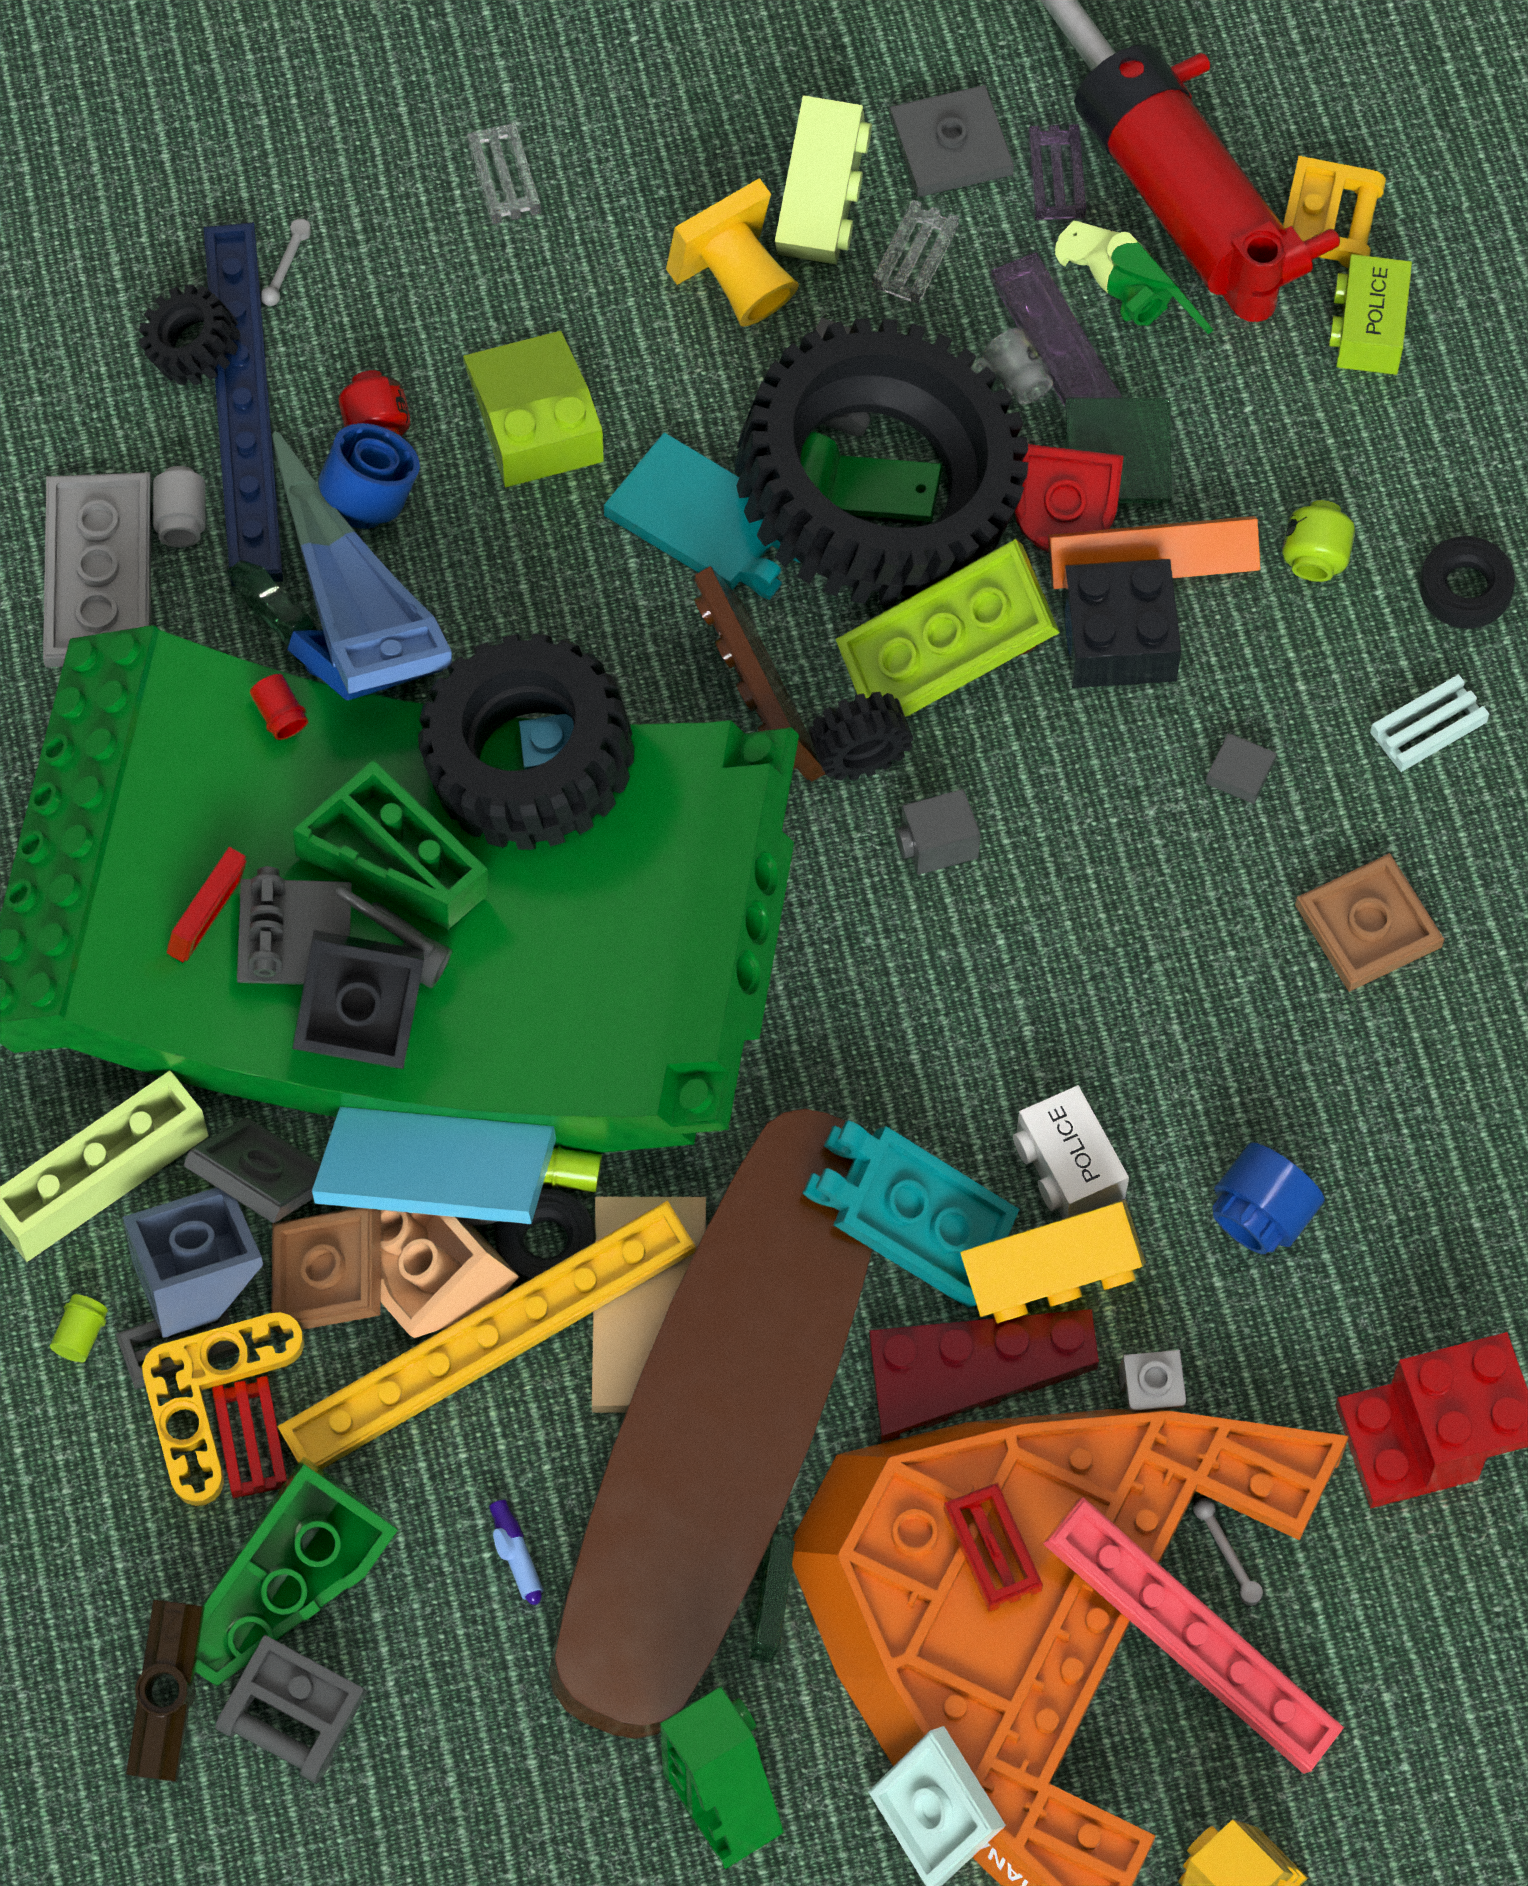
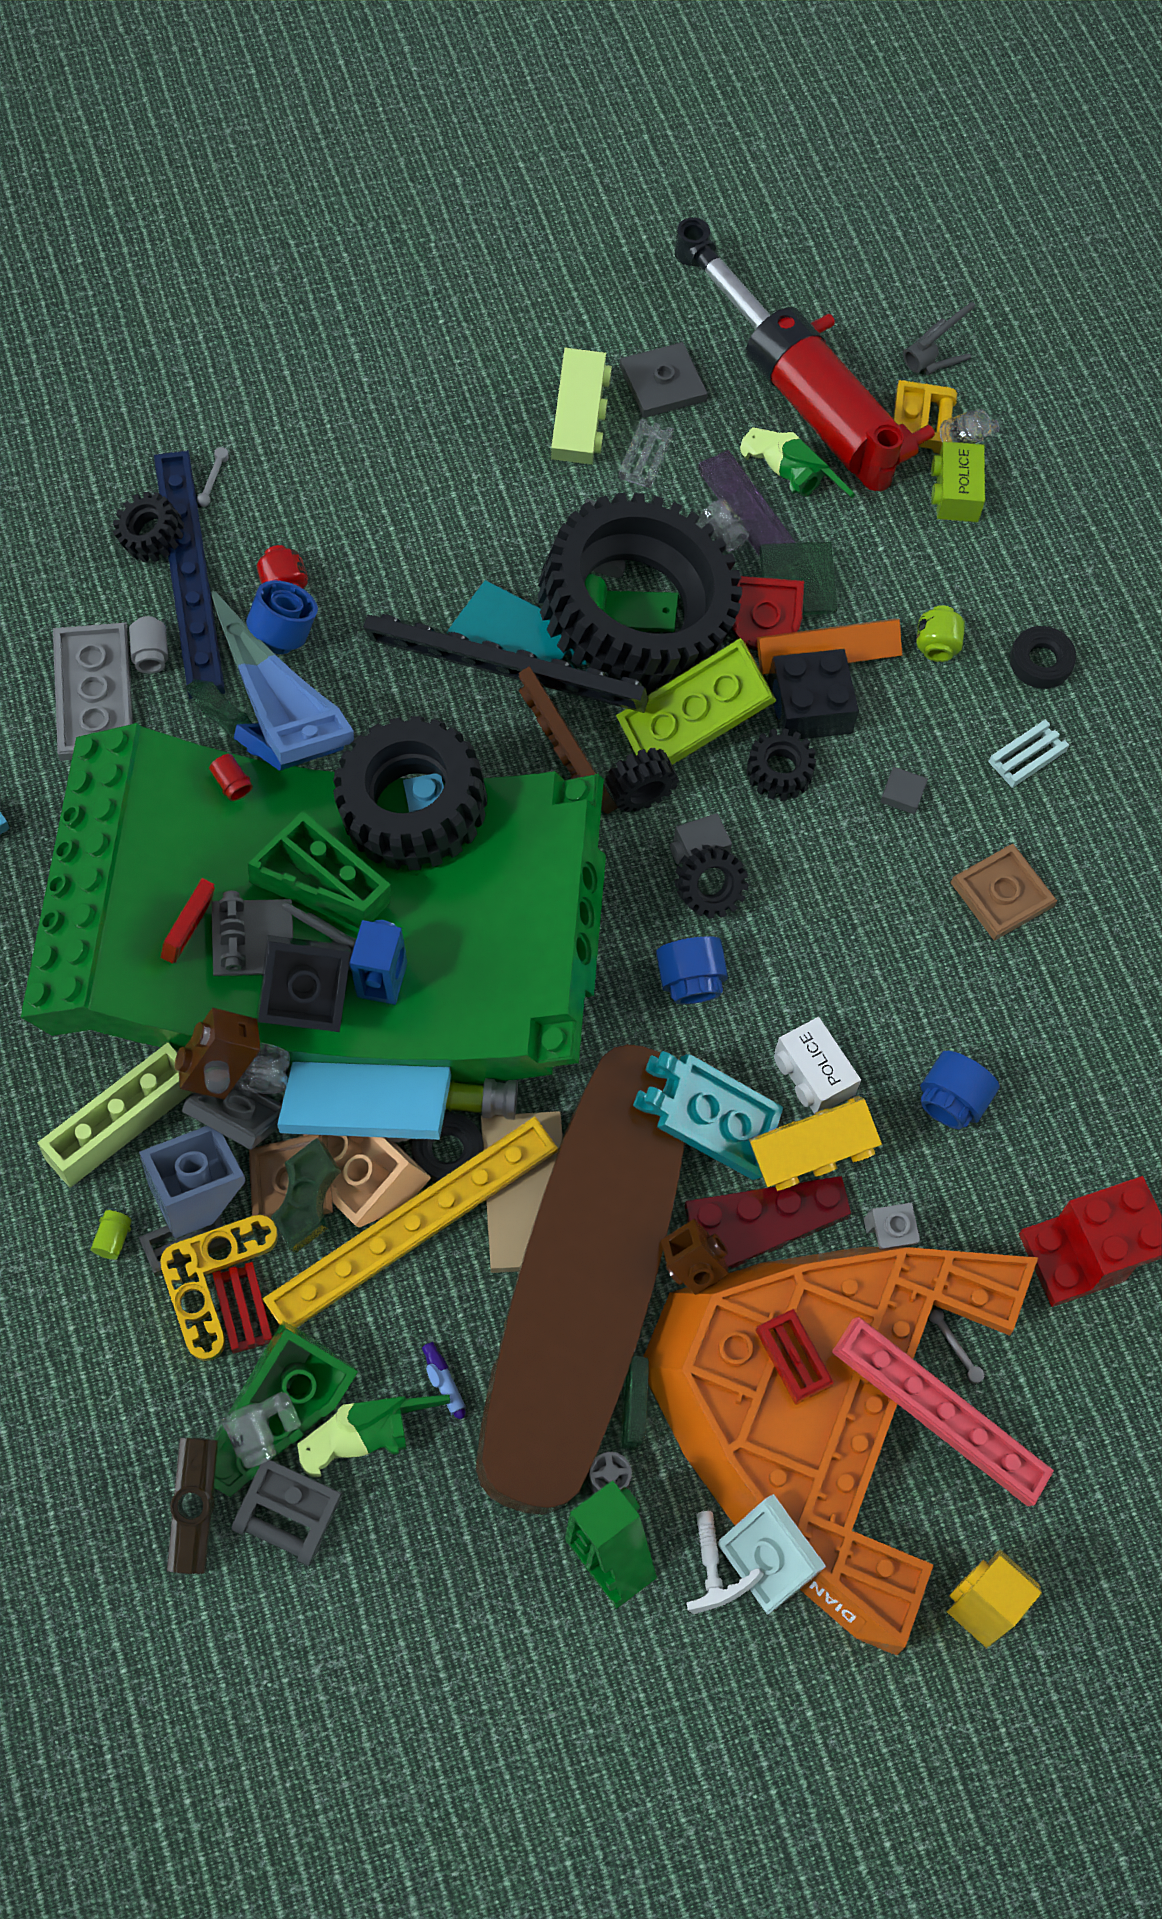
camera: 10 degrees left, 0 degrees up
(236, 1089) = (218, 1053): none -> reddish brown piece
(249, 1599) = (251, 1432): none -> clear piece
(294, 1115) = (266, 1071): none -> clear wheel
(338, 1310) = (301, 1213): none -> clear green tile
(398, 1608) = (360, 1430): none -> animal
(464, 975) = (378, 961): none -> blue brick
(512, 205) = (366, 433): clear tile -> none
(535, 408) = (395, 567): lime slope -> none
(621, 1174) = (499, 1099): none -> flat silver wheel
(662, 549) = (492, 658): none -> black plate
(728, 244) = (518, 449): yellow plant -> none
(735, 1679) = (609, 1467): none -> flat silver wheel
(860, 1858) = (710, 1558): none -> white piece
(870, 1405) = (695, 1256): none -> reddish brown brick
(908, 1009) = (692, 969): none -> blue piece
(953, 916) = (729, 893): none -> black tyre
(1055, 139) = (733, 376): clear purple tile -> none
(1066, 695) = (787, 747): none -> black tyre
(1341, 114) = (924, 351): none -> dark grey plant
(1392, 235) = (968, 427): none -> clear piece

